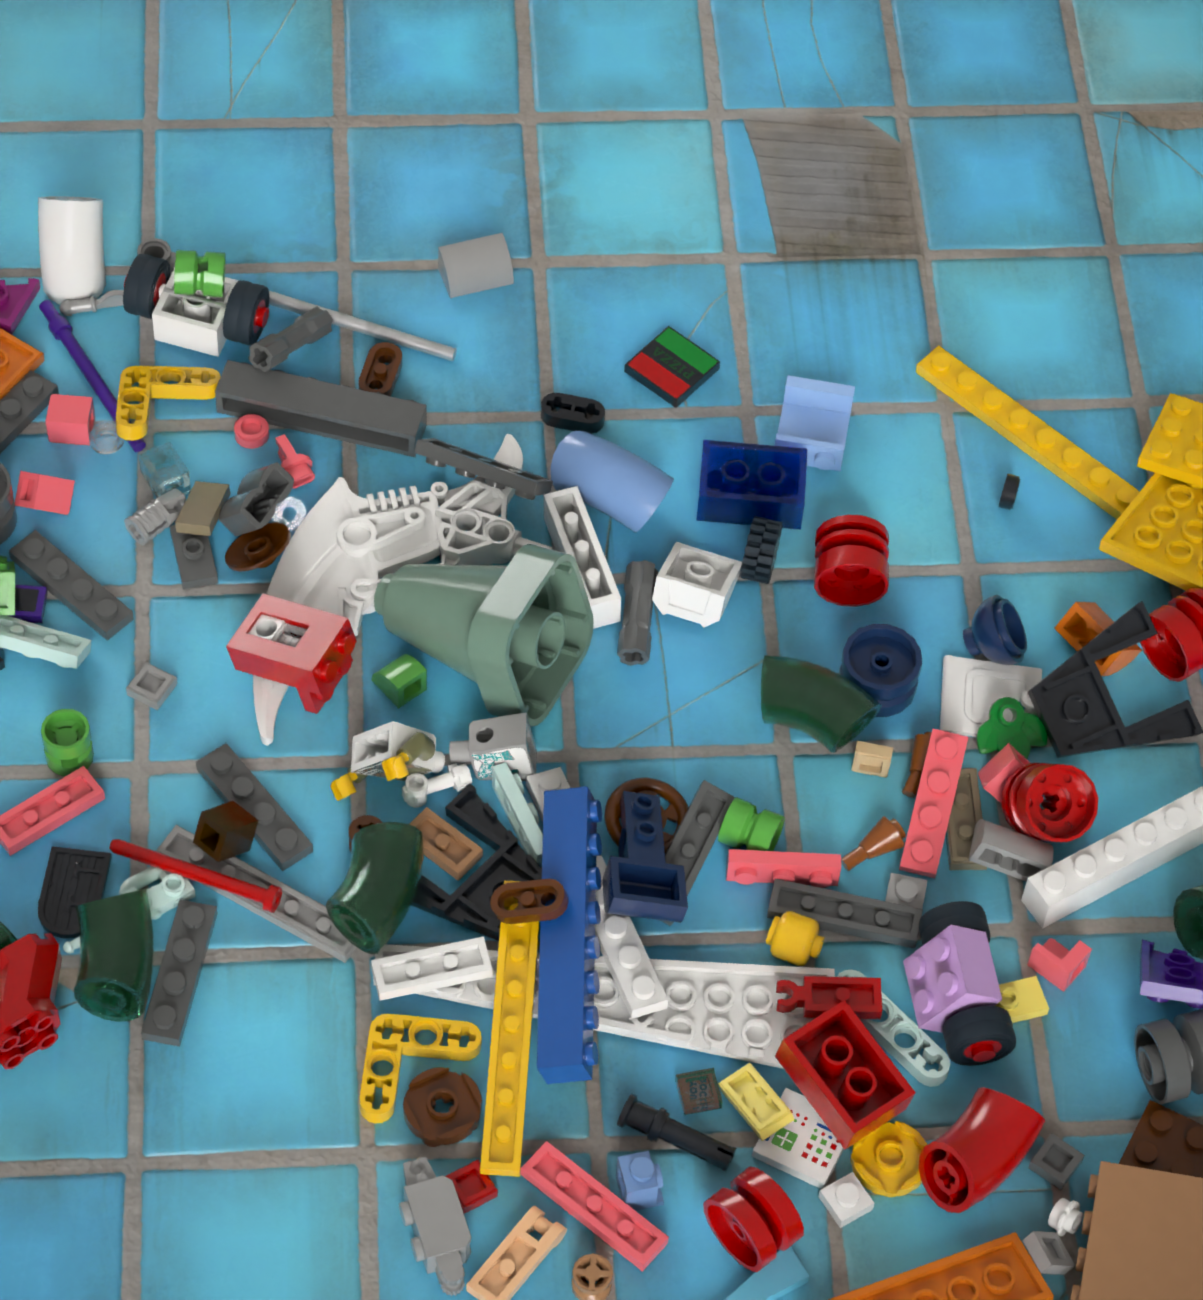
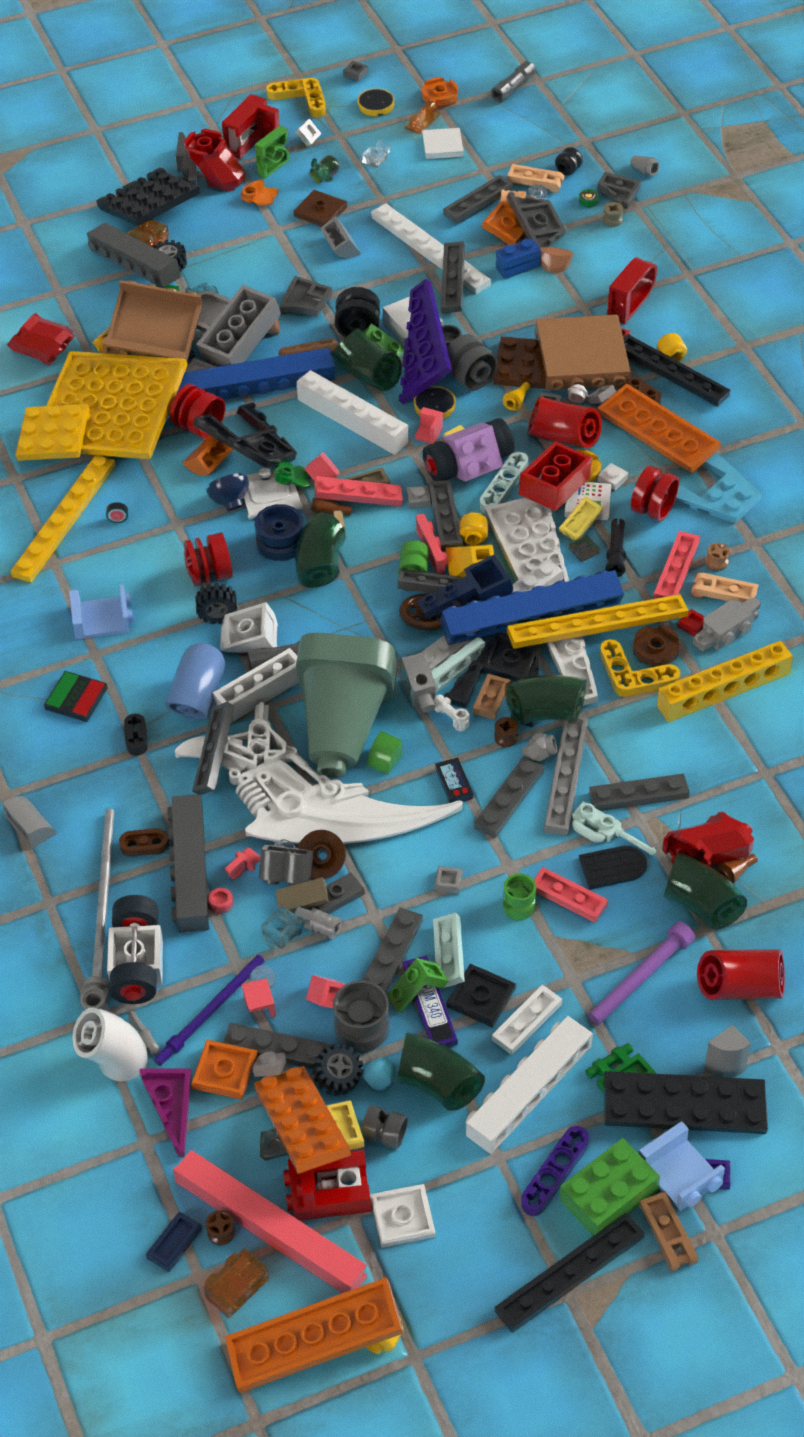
camera: 105 degrees left, 5 degrees down
(115, 956) = (648, 812): clear green brick -> none
(193, 383) = (210, 965): yellow beam -> none
(199, 273) = (122, 938): bright green wheel -> none
(225, 831) = (541, 792): dark brown brick -> none
(269, 897) = (574, 756): red bar -> none
(276, 347) = (160, 890): dark grey axle -> none
(294, 648) = (399, 780): brick -> none
(313, 868) = (540, 747): none -> light grey rock
(314, 748) = (454, 780): none -> tile
(320, 1168) = (724, 681): none -> yellow brick
(389, 753) = (450, 725): torso -> none
(431, 968) = (582, 664): white plate -> none
(531, 901) = (530, 618): reddish brown plate -> none
(639, 1181) = (653, 545): medium blue brick -> none
(726, 913) = (465, 556): none -> yellow slope
(751, 482) = (165, 621): clear blue brick -> none
(823, 993) = (507, 496): red plate -> none
(882, 839) = (389, 511): dark orange cone -> none
(1009, 851) = (371, 455): light grey brick -> none
(1067, 807) = (341, 437): red wheel -> none
(1089, 1117) = (514, 399): none -> yellow cone
(1114, 994) = (437, 399): none -> black tile

